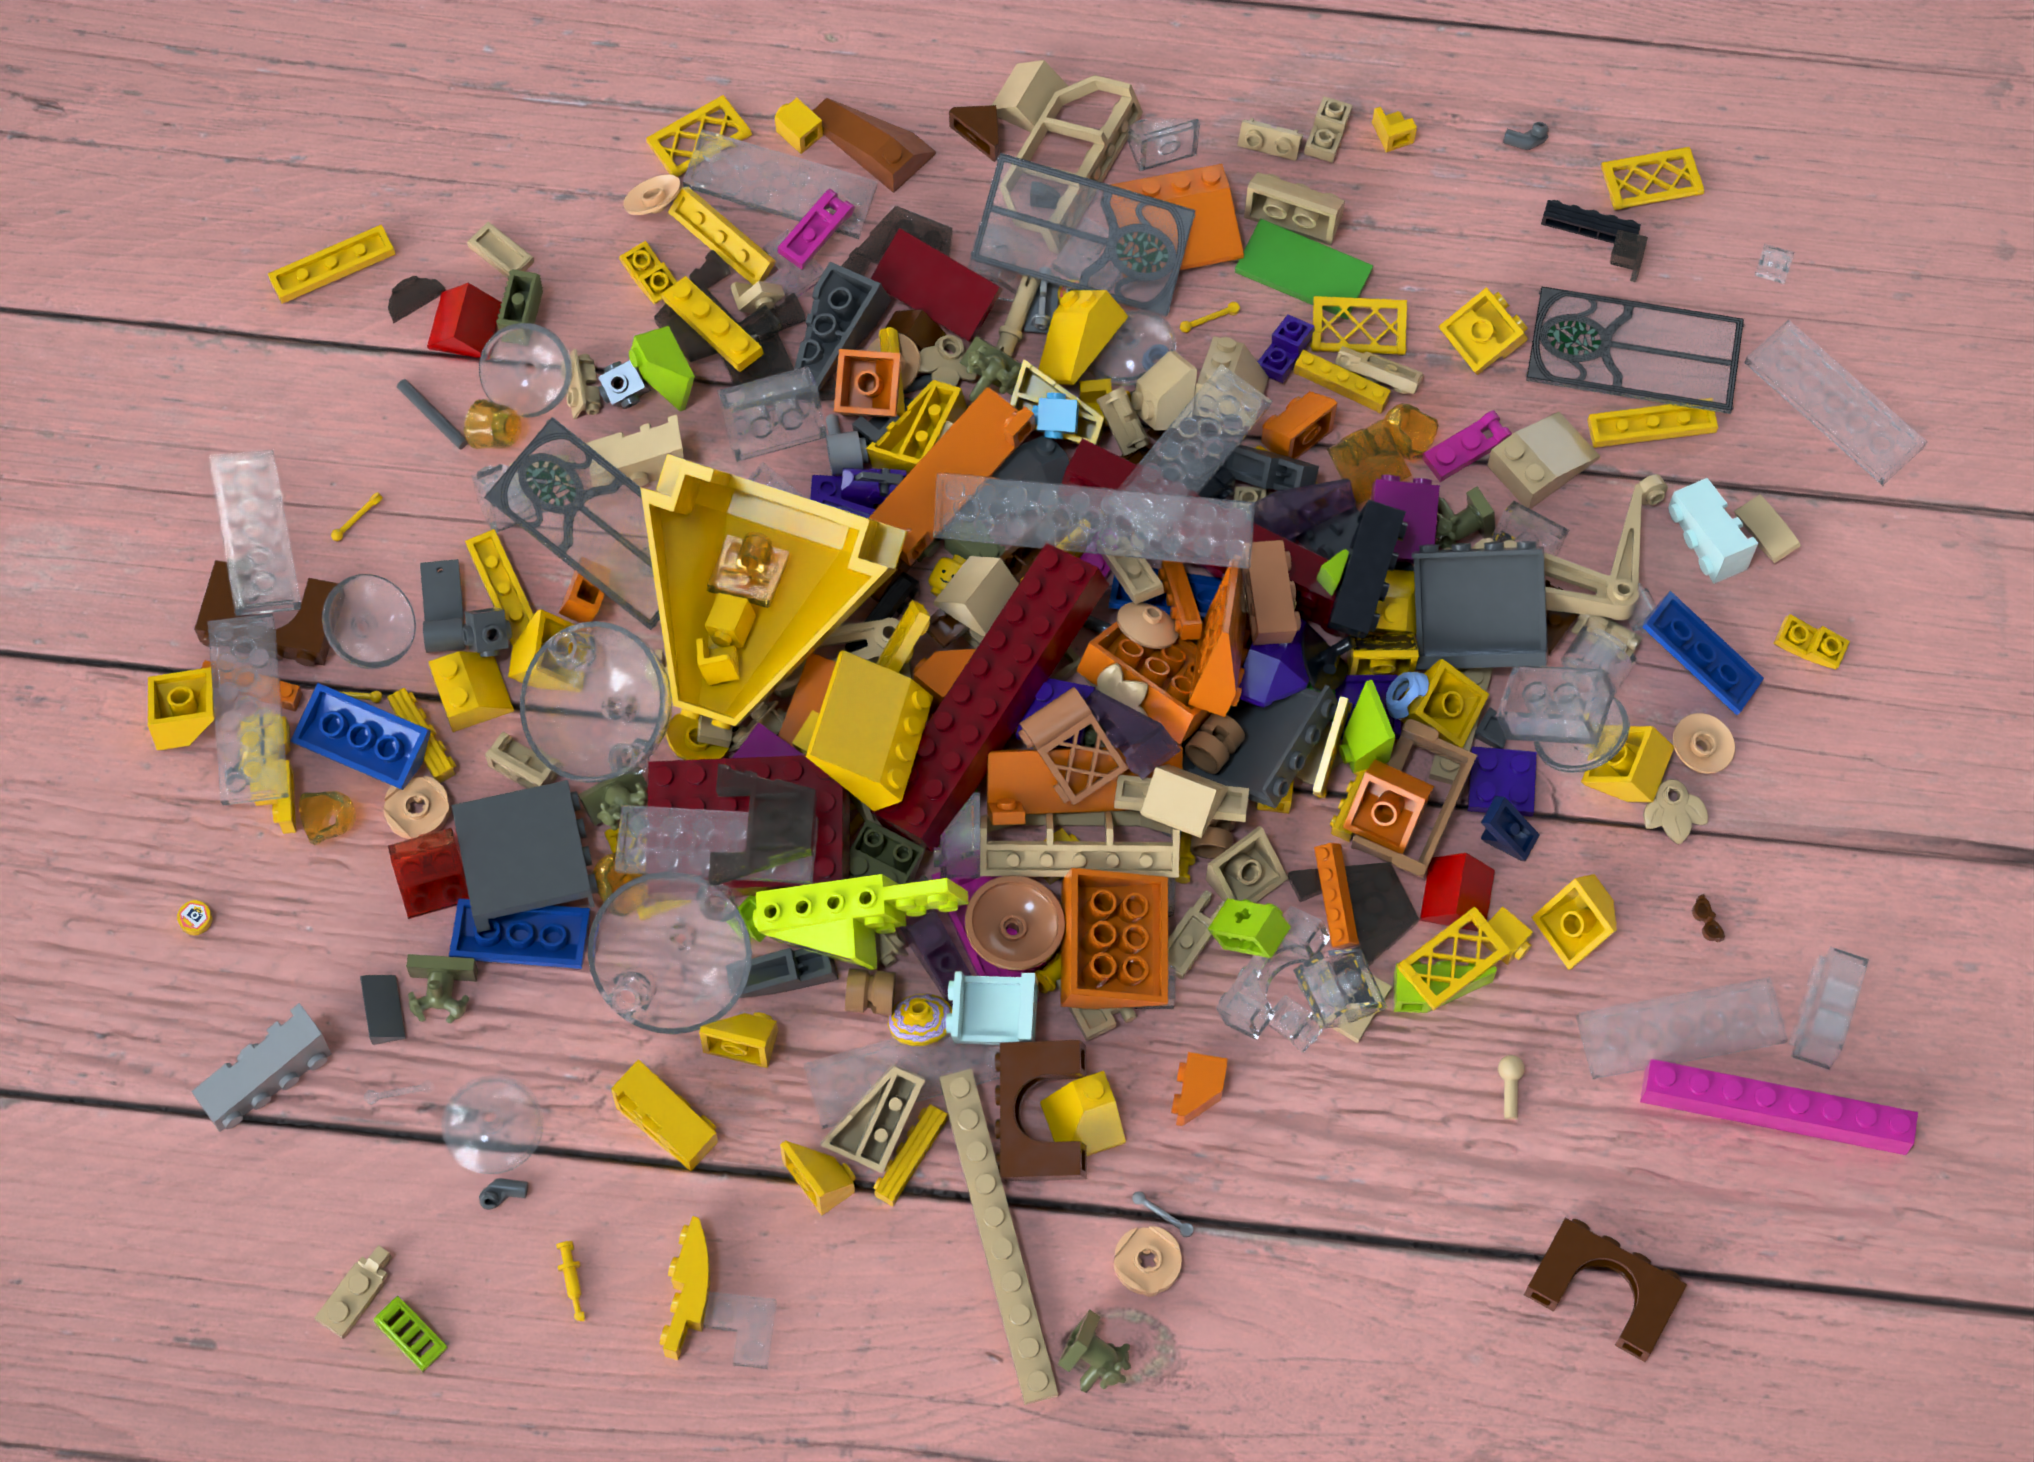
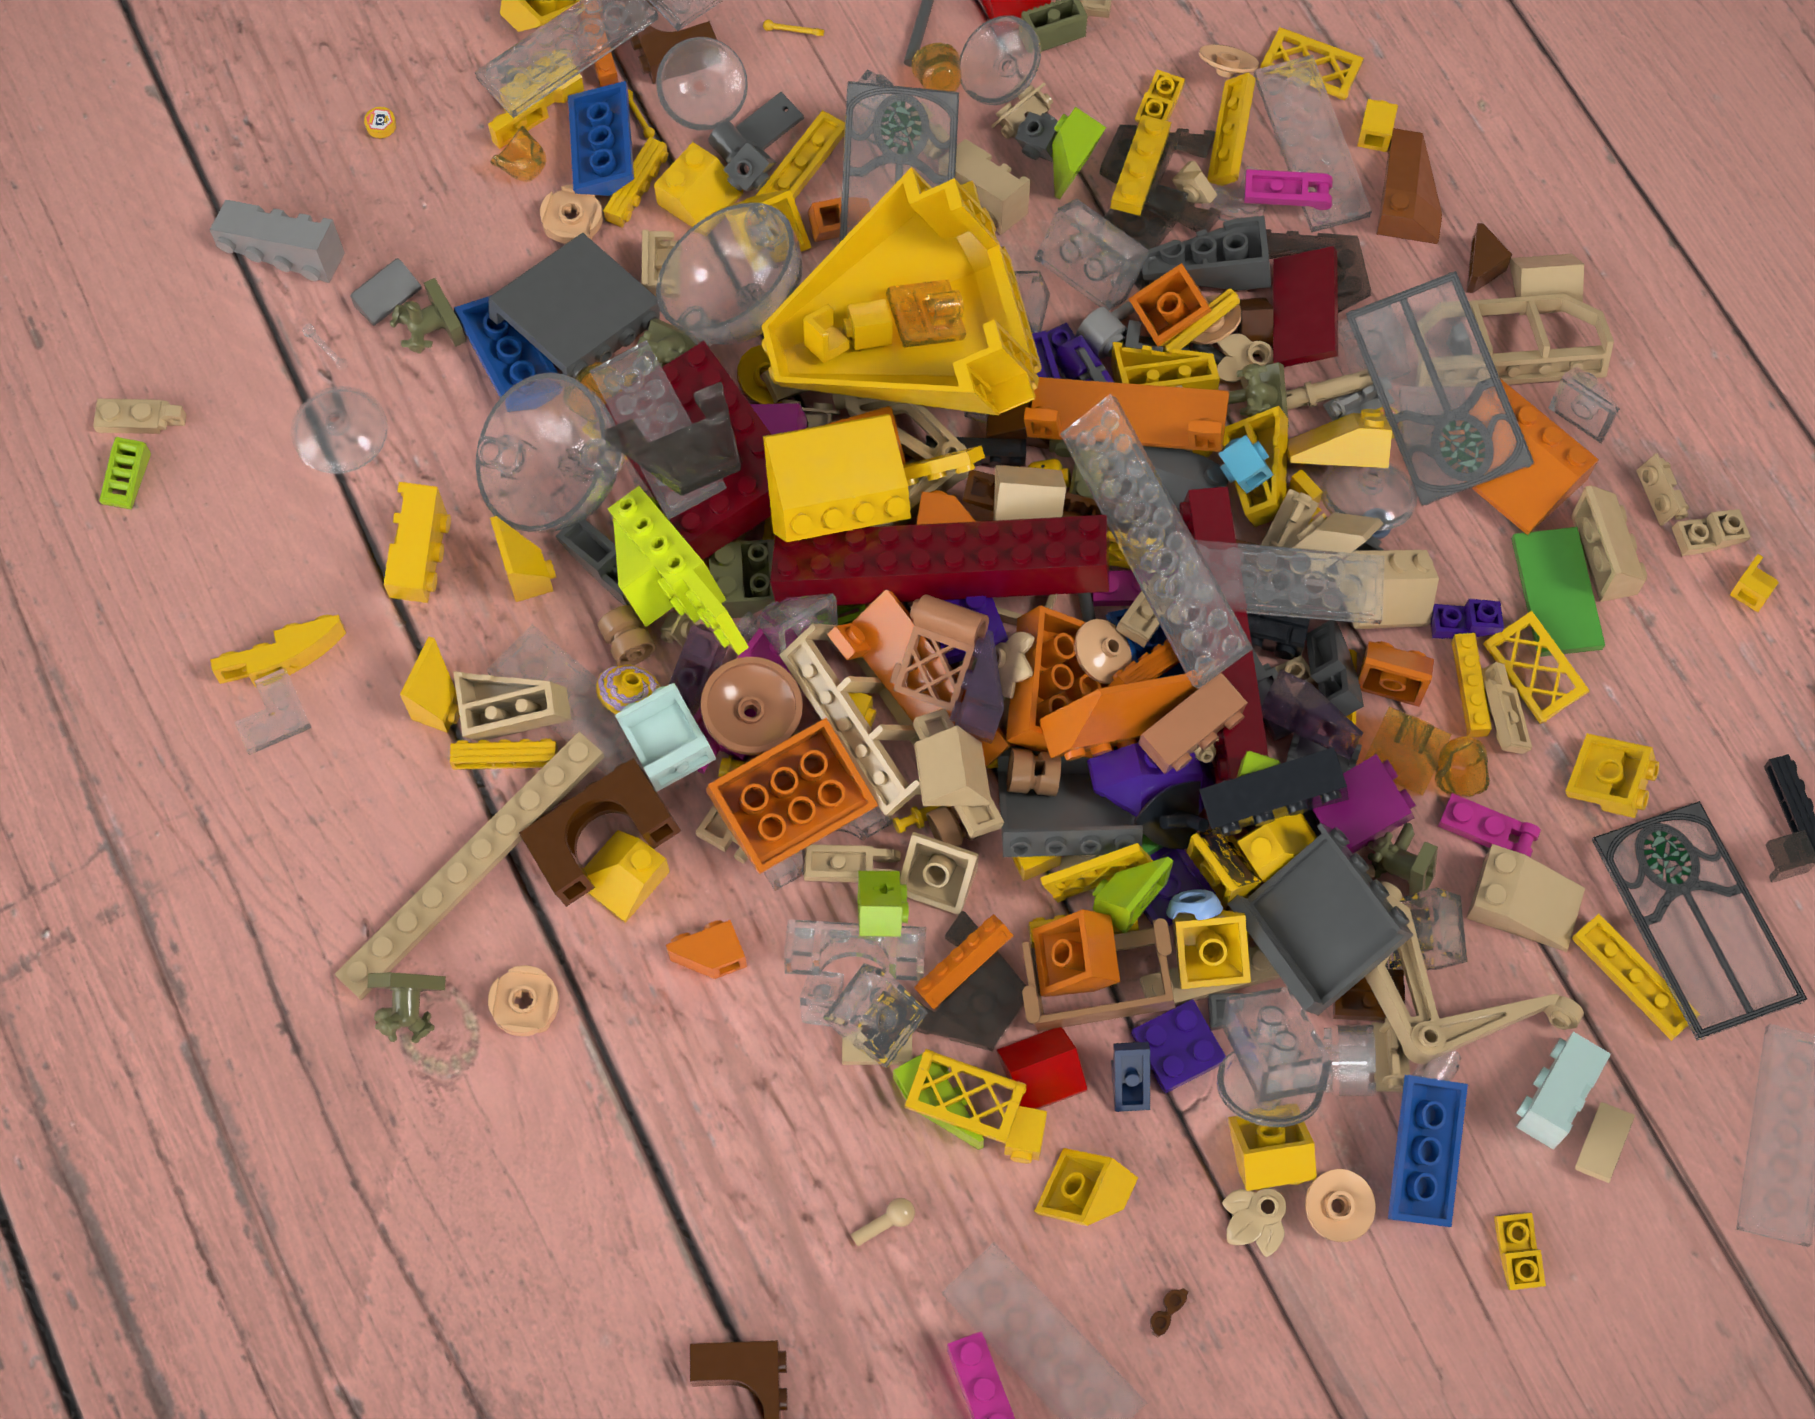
camera: 60 degrees right, 0 degrees up
(429, 872) = (515, 247): clear red slope -> none
(500, 1190) = (282, 466): dark grey arm -> none
(571, 1276) = (240, 561): yellow piece -> none
(1186, 1229) = (575, 1017): light grey hinge -> none
(1232, 309) = (1473, 556): yellow hinge -> none

